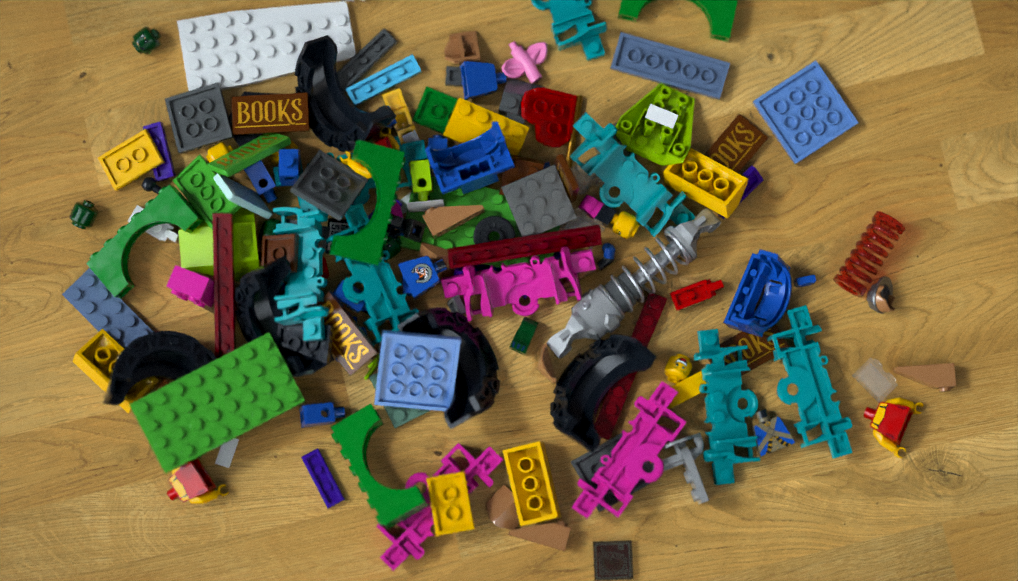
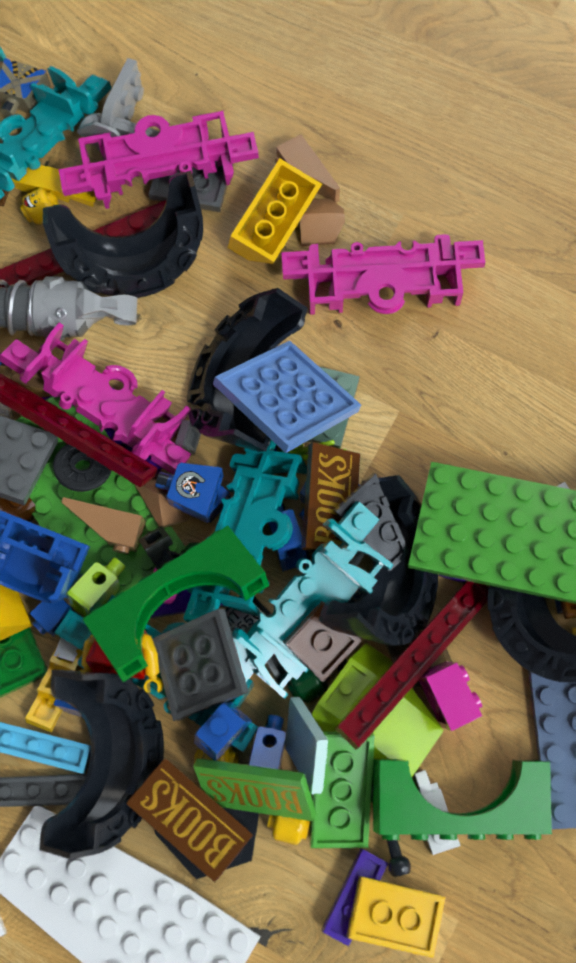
camera: 130 degrees left, 10 degrees down
(83, 214) = (506, 899): dark green head -> none
(199, 118) = (274, 894): dark grey plate -> none
(311, 414) = (425, 445): blue torso -> none
(323, 478) = (474, 391): dark purple tile -> none
(354, 436) = (431, 294): green arch -> none
(424, 205) = (120, 558): white sticker -> none
(450, 503) = (370, 252): yellow tile -> none
(523, 336) = (151, 355): dark green leg -> none
(545, 365) = (156, 311): medium nougat slope -> none
(613, 560) = (264, 103): clear smoke tile -> none

